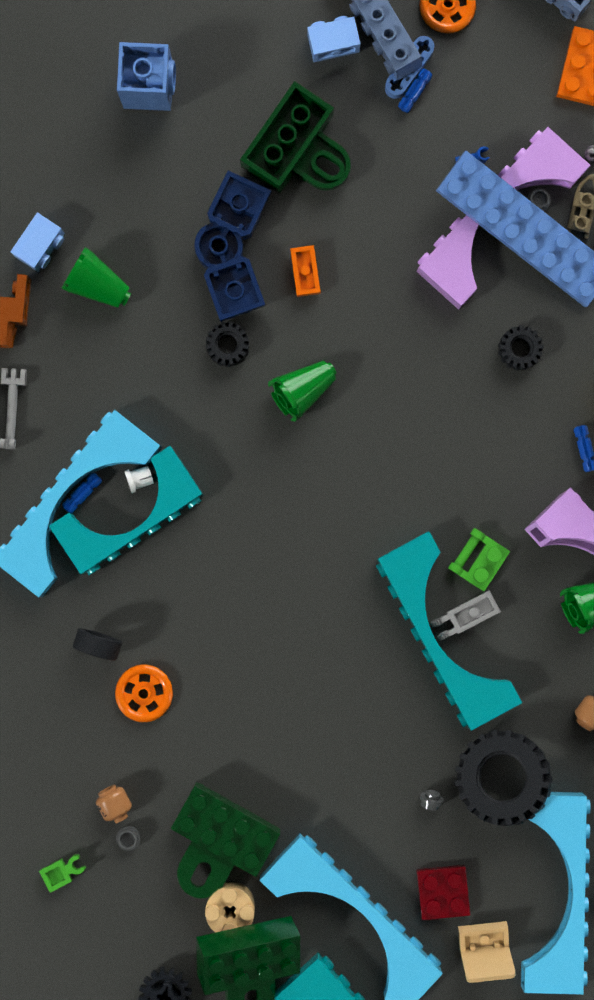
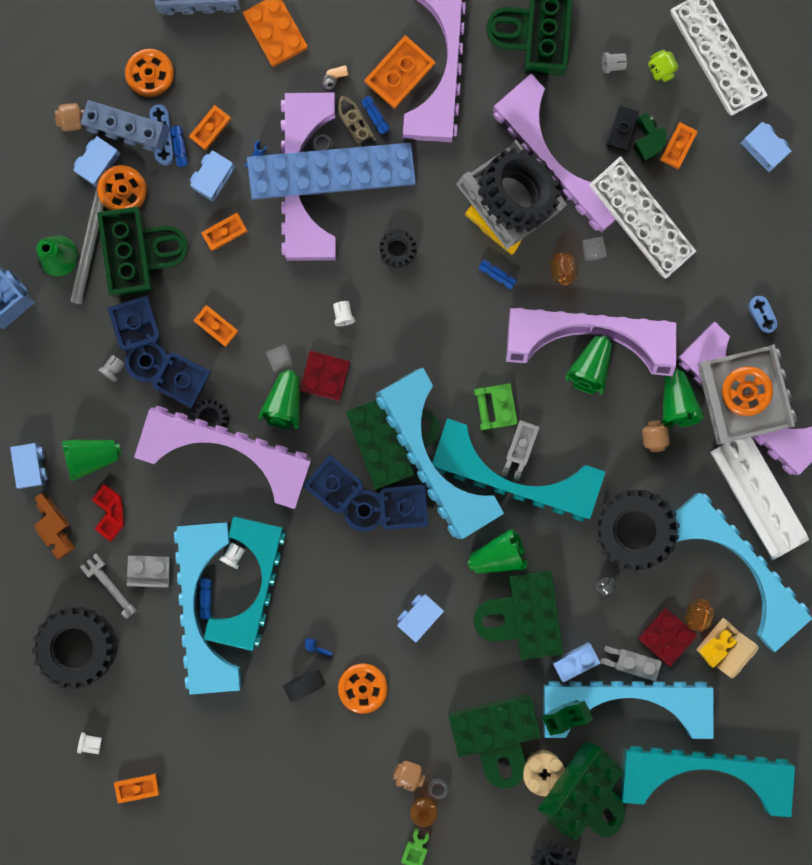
camera: 40 degrees left, 0 degrees up
(56, 425) = (148, 571): none -> light grey plate
(66, 355) = (114, 519): none -> red tile
(98, 846) = (423, 812): none -> clear orange head
(133, 616) = (310, 645): none -> blue hand
(181, 322) = (169, 431): none -> lavender arch
(184, 225) = (112, 368): none -> light grey bush
(226, 87) = (57, 255): none -> green cone
(248, 678) = (419, 617): none -> light blue brick
(261, 104) = (87, 251): none -> light grey axle
(282, 512) = (345, 494): none -> dark blue plate
(295, 881) = (567, 716): none -> dark green brick
(333, 347) = (279, 357): none -> clear plate
(341, 764) = (528, 616): none -> dark green brick
(345, 840) = (575, 662): none -> light blue brick
(351, 74) = (128, 173): none -> orange plate
(357, 398) = (324, 376): none -> dark red plate
(360, 501) = (379, 444): none -> dark green brick
(365, 688) = (499, 555): none -> green cone
(386, 198) = (224, 232): none -> orange plate
(393, 888) = (633, 663): none -> light grey hinge
(402, 486) = (404, 406): none -> medium azure arch
(420, 140) = (212, 175): none -> light blue brick
(422, 360) = (343, 314): none -> white bush
(456, 98) = (210, 127): none -> orange plate
(473, 943) = (715, 649): none -> yellow plate
(488, 900) = (699, 615): none -> clear orange head

